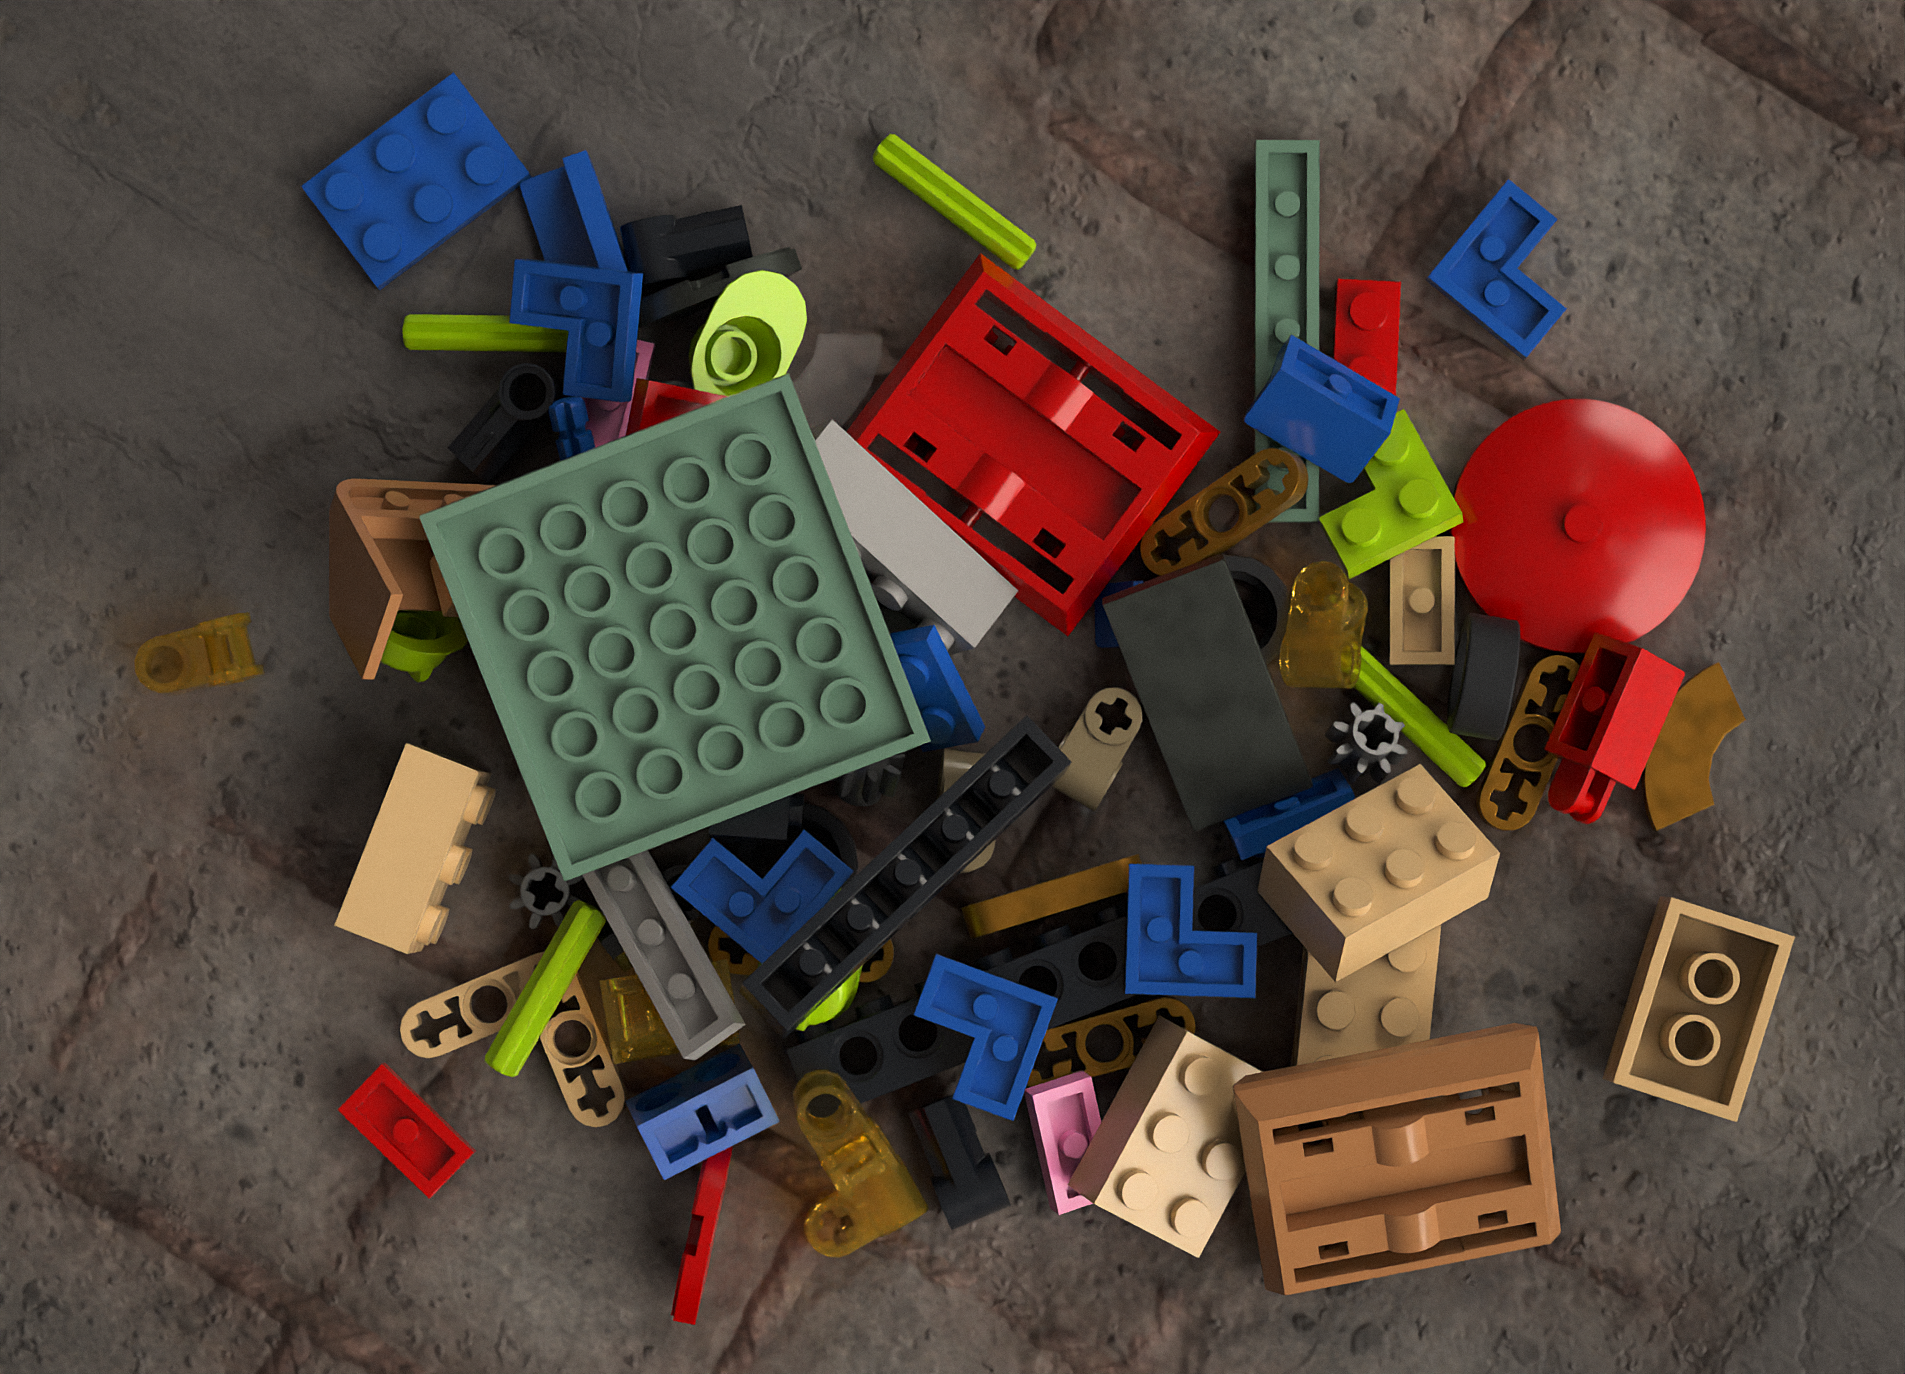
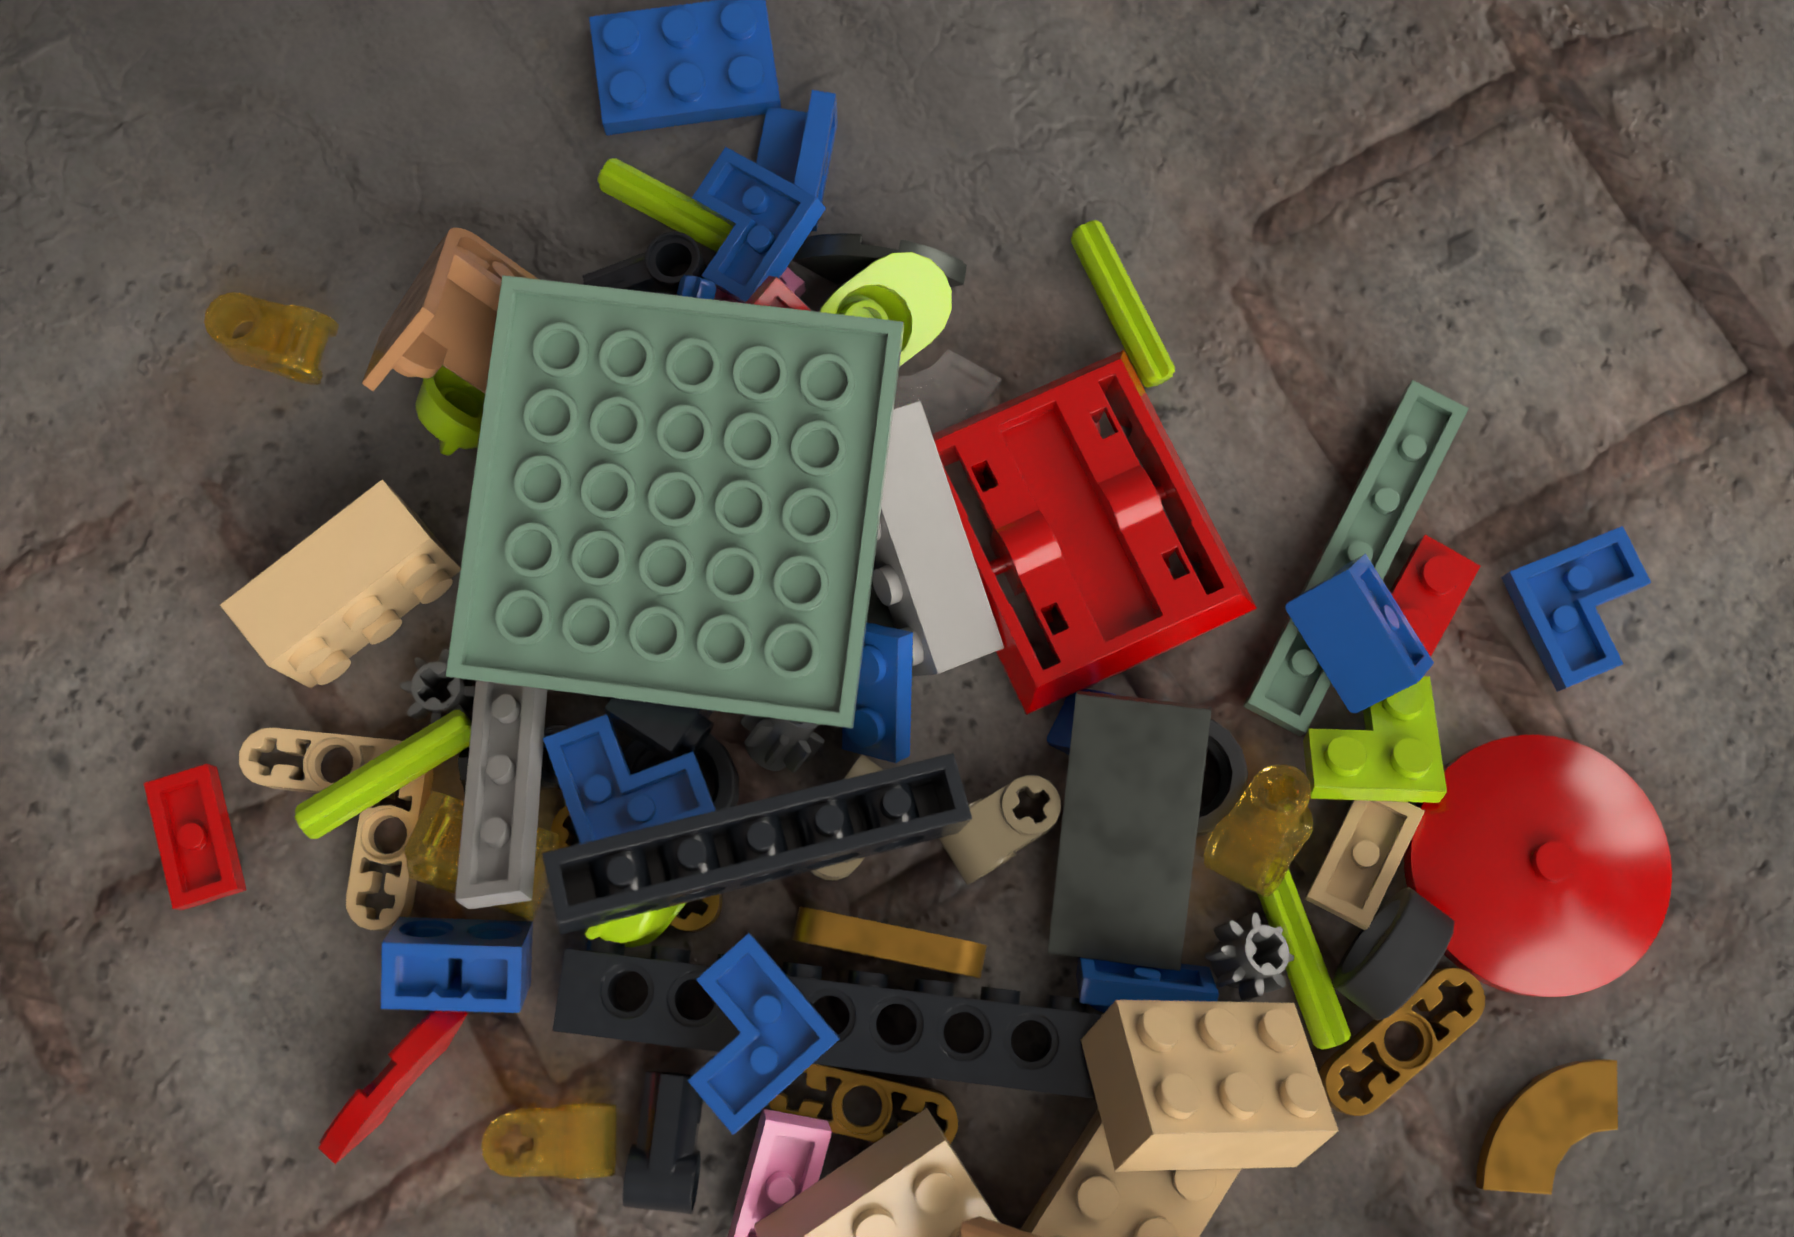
camera: 25 degrees right, 10 degrees down
(674, 248) = (882, 219): black piece -> none
(849, 1140) = (568, 1069): clear yellow piece -> none
(1165, 951) = (965, 1051): blue plate -> none
(1254, 474) = (1269, 657): pearl gold beam -> none
(1608, 725) = (1490, 1062): red brick -> none

